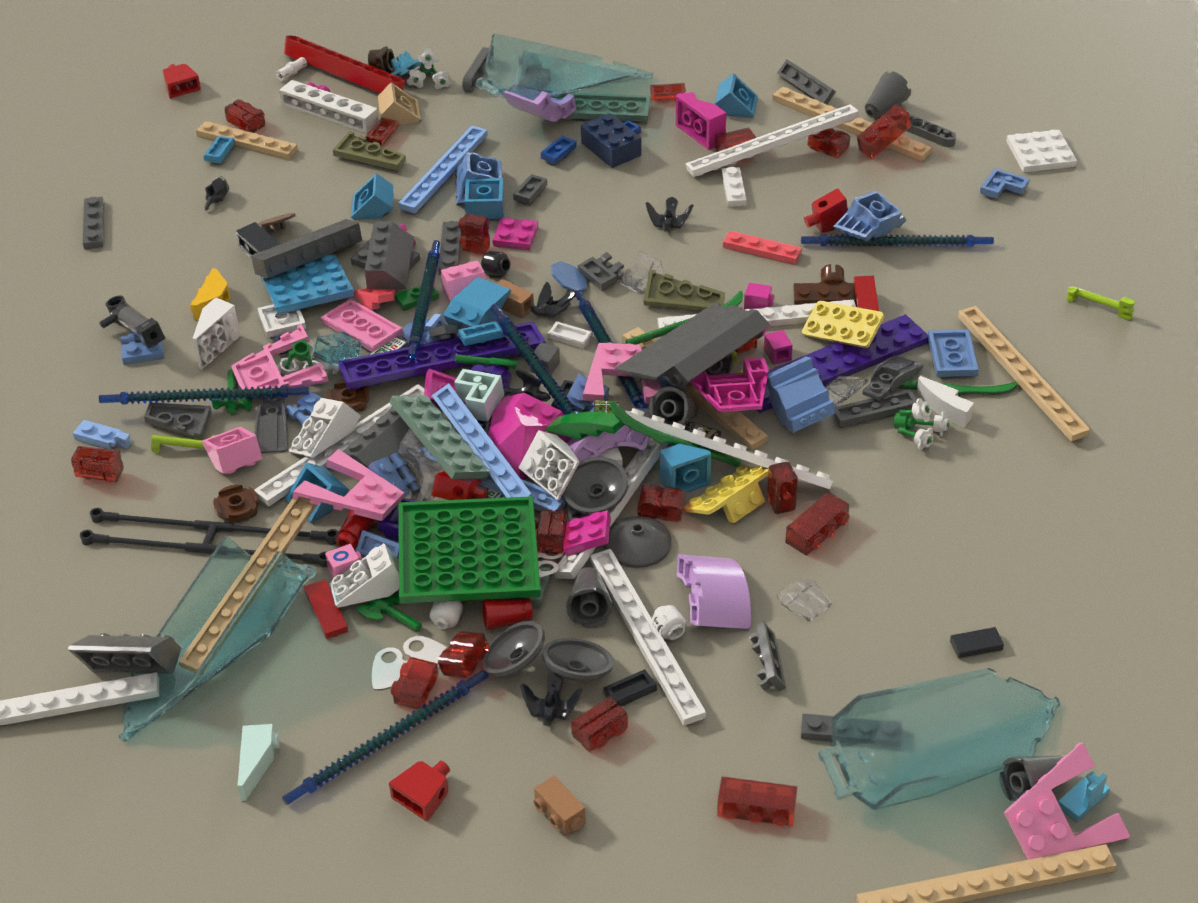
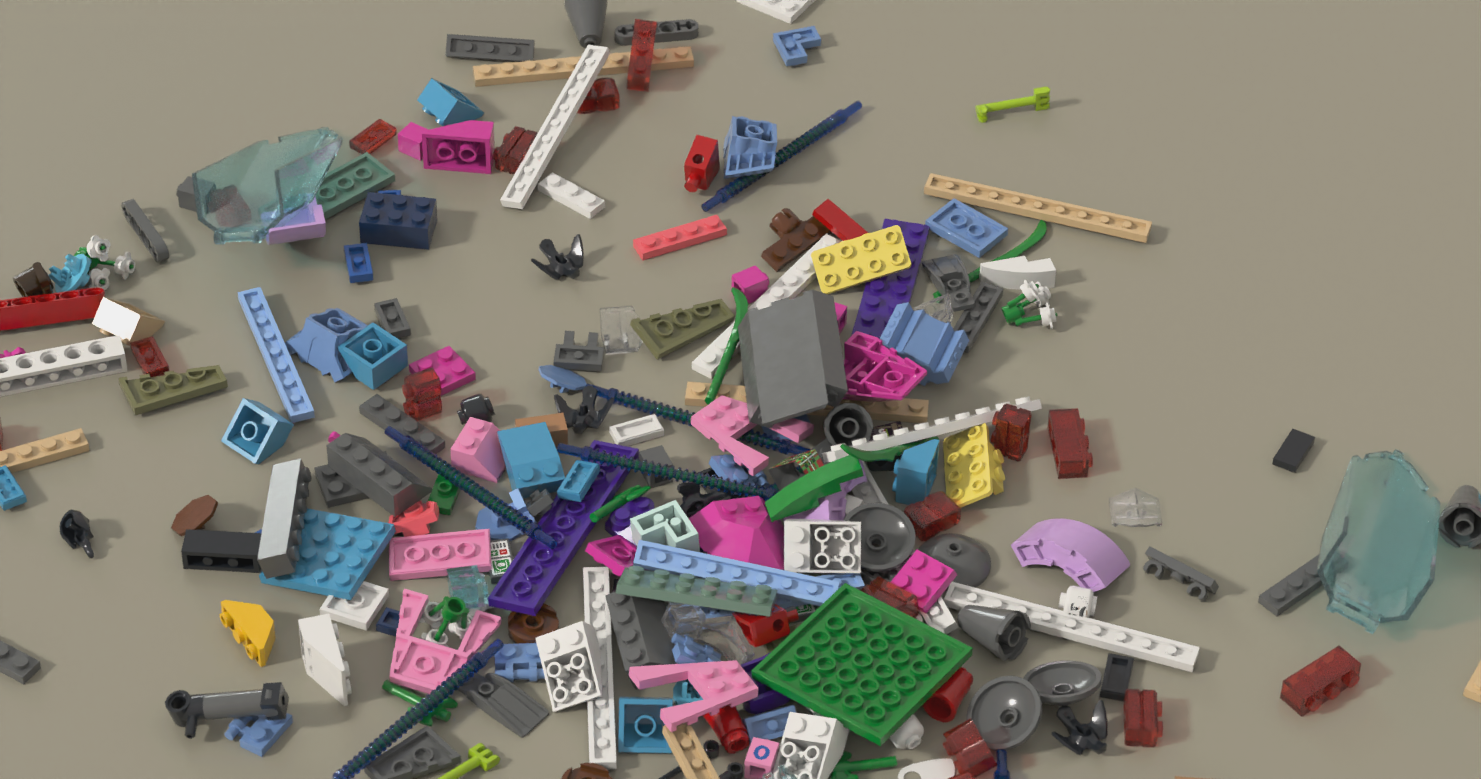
camera: 50 degrees left, 0 degrees up
(233, 450) = (514, 744): bright pink slope -> none

